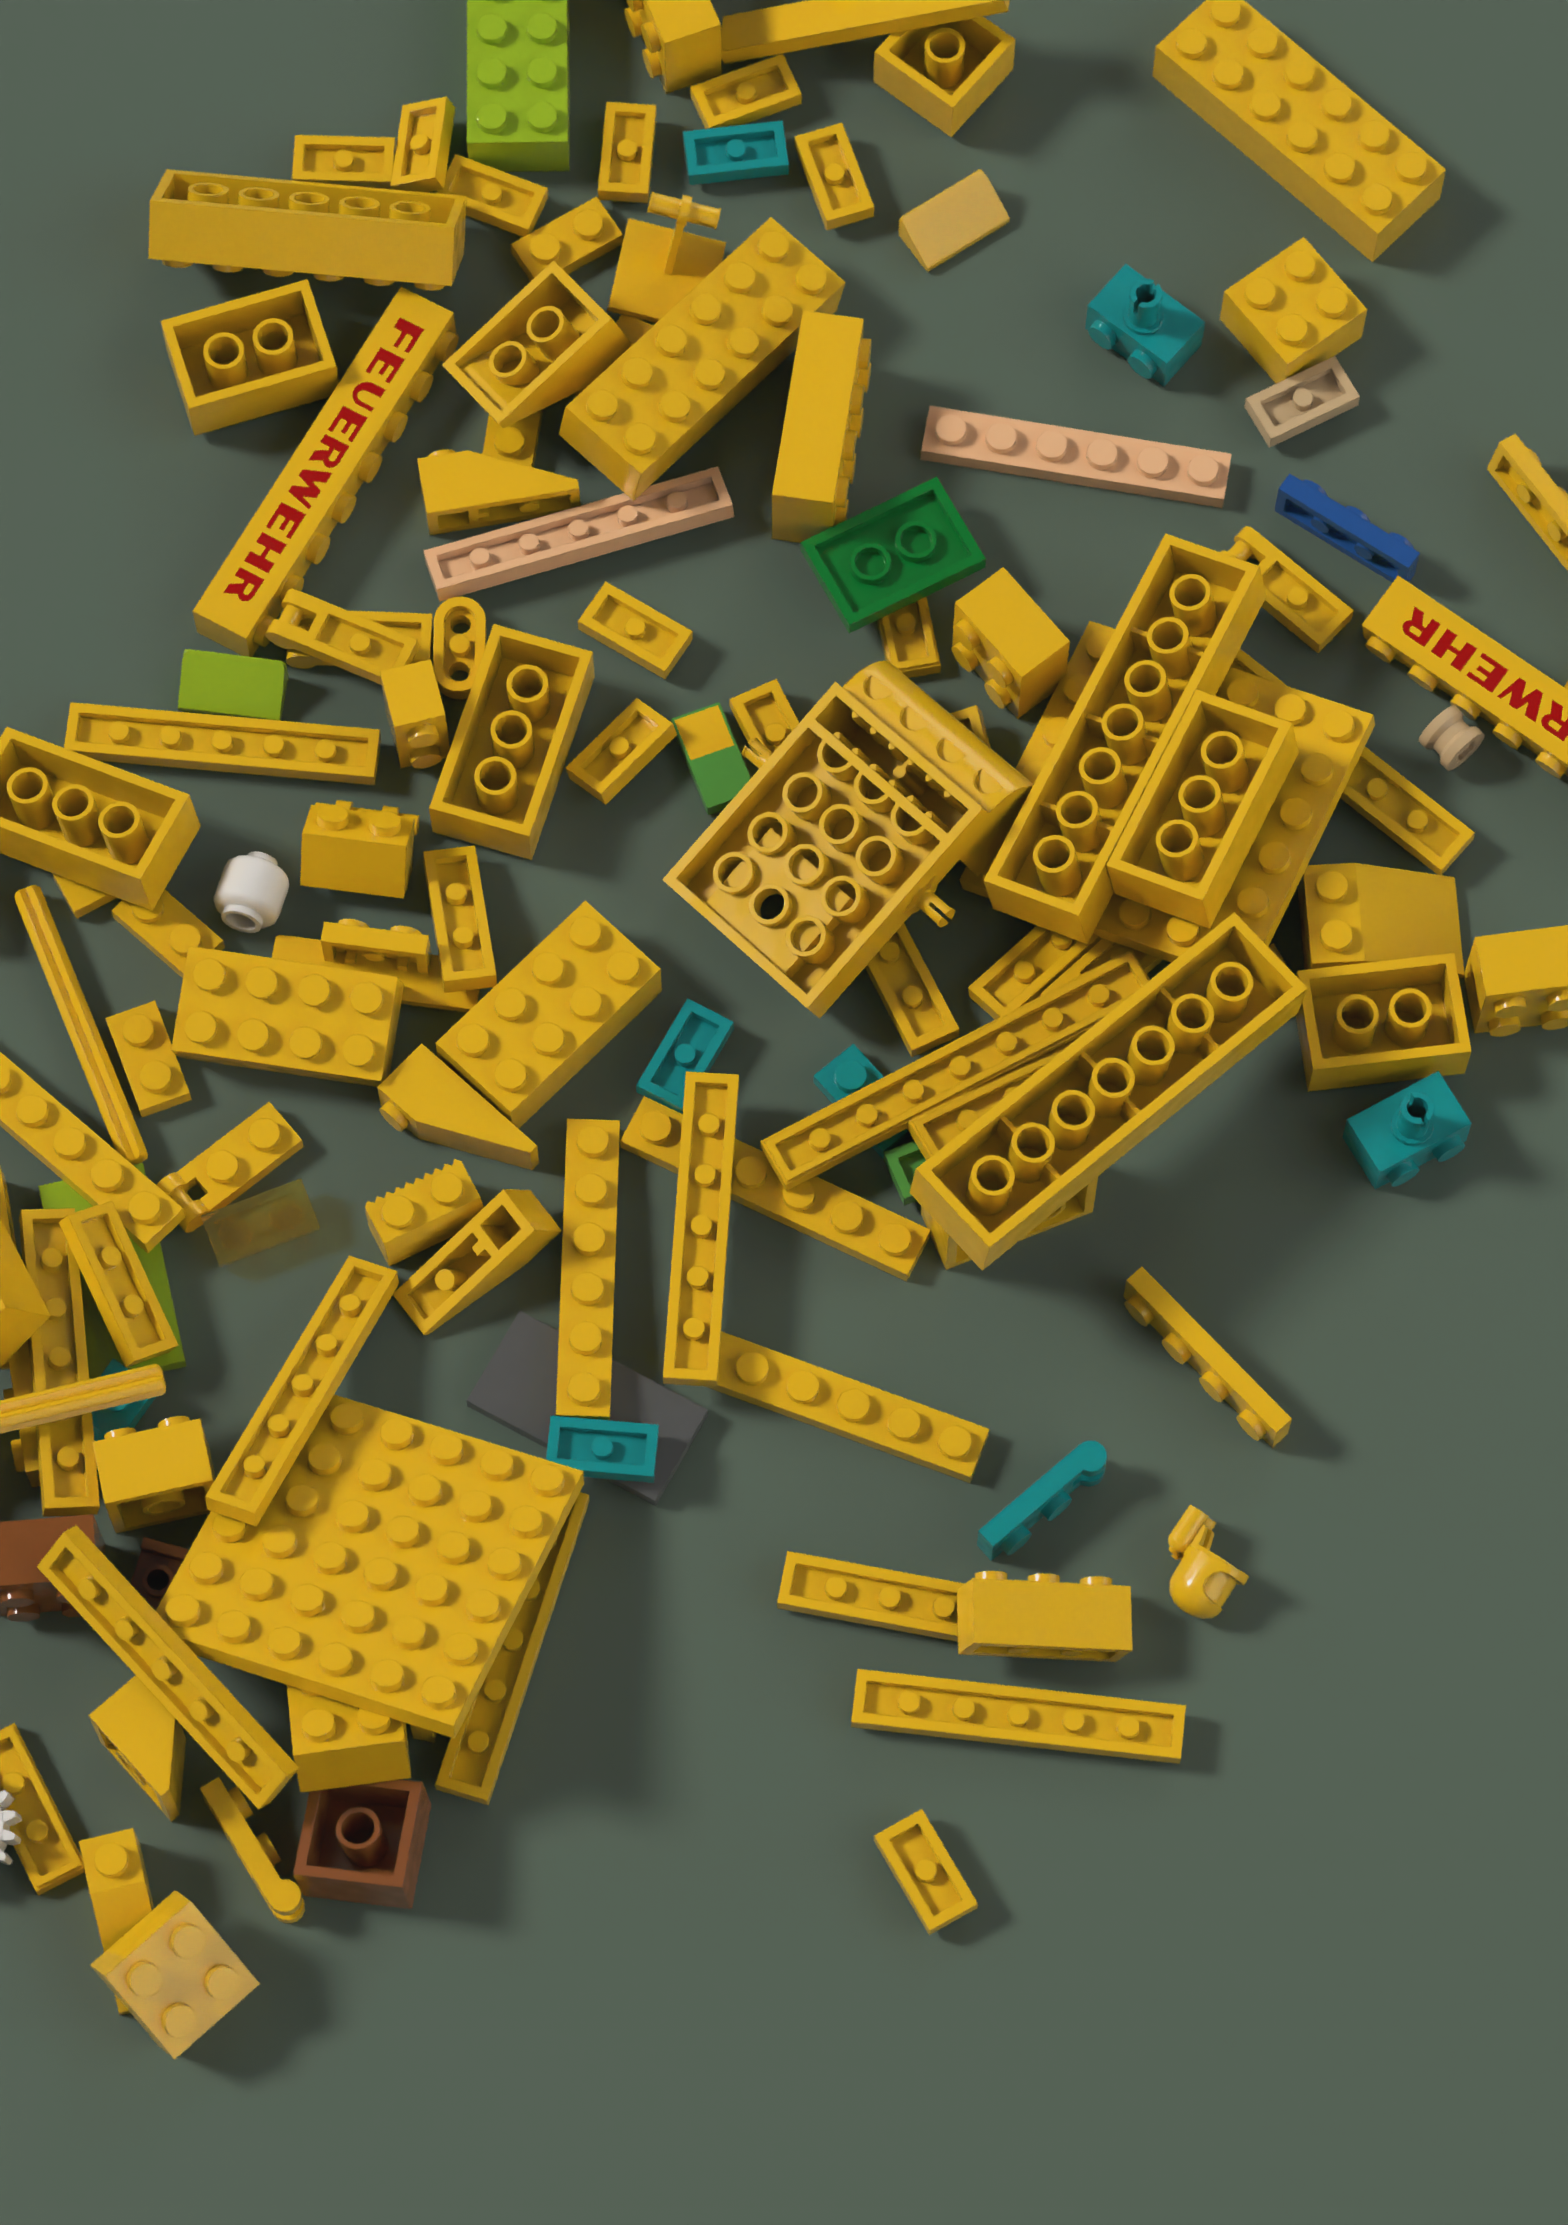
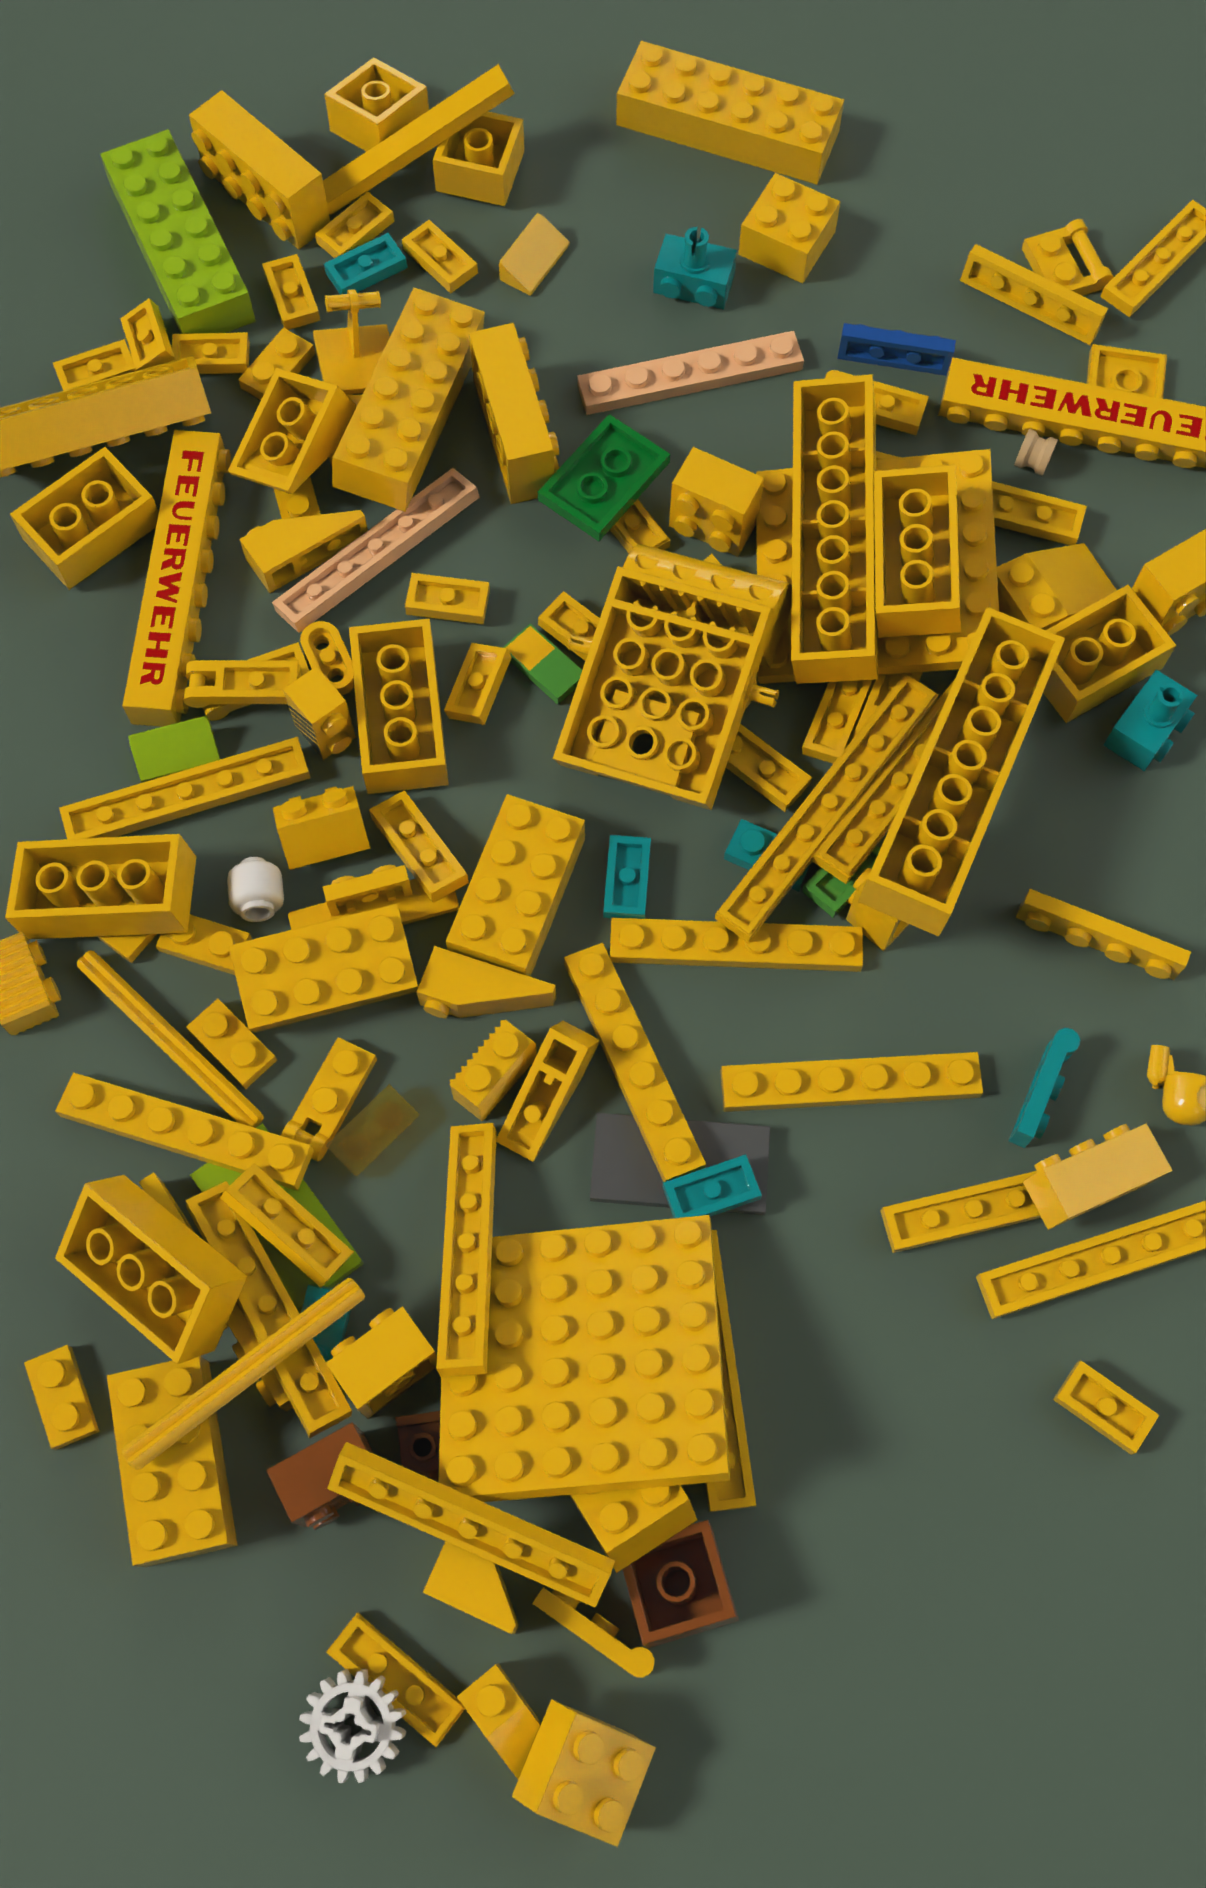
camera: 25 degrees left, 0 degrees up
(701, 1229) = (706, 997): yellow plate -> none
(1302, 401) = (822, 281): tan plate -> none

